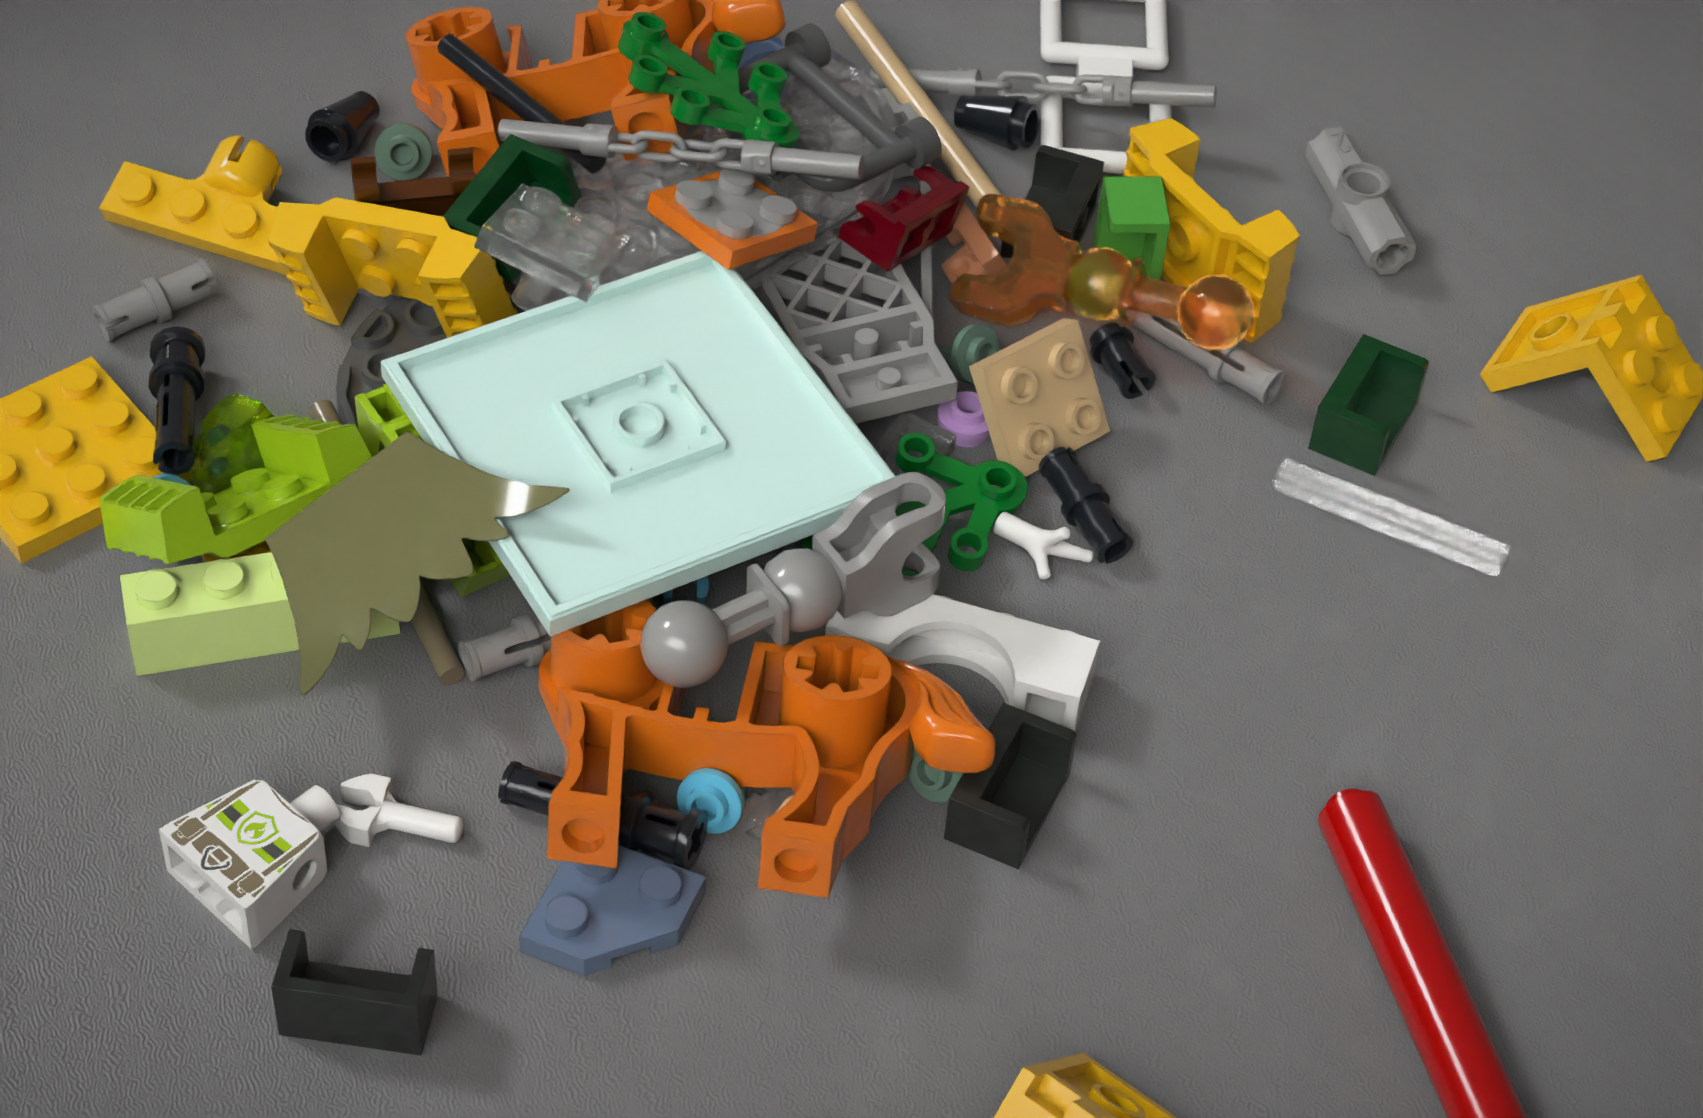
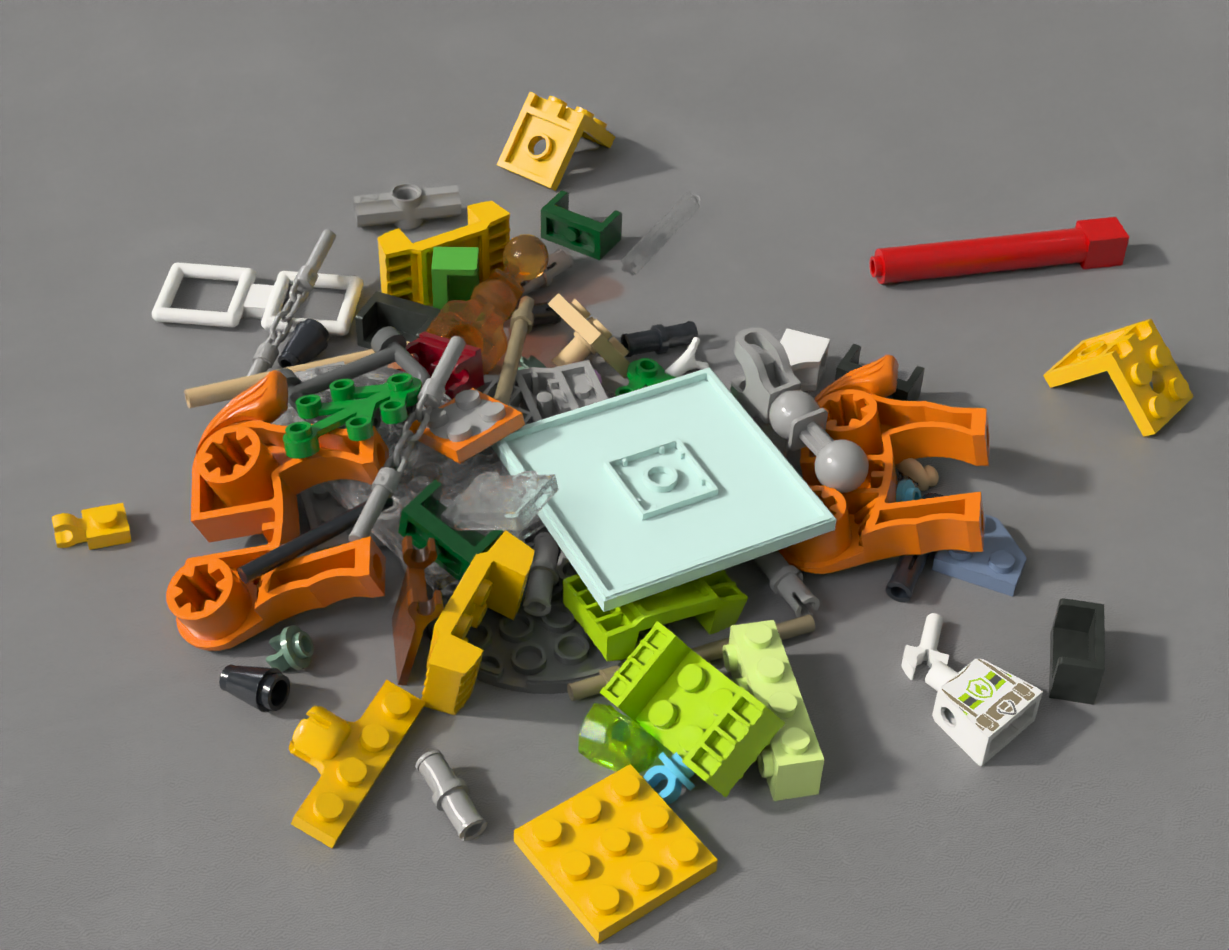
camera: 85 degrees left, 5 degrees down
(176, 386) = (555, 767): black pin -> none
(381, 532) = (756, 610): olive piece -> none
(932, 293) = (521, 325): none -> dark tan bar

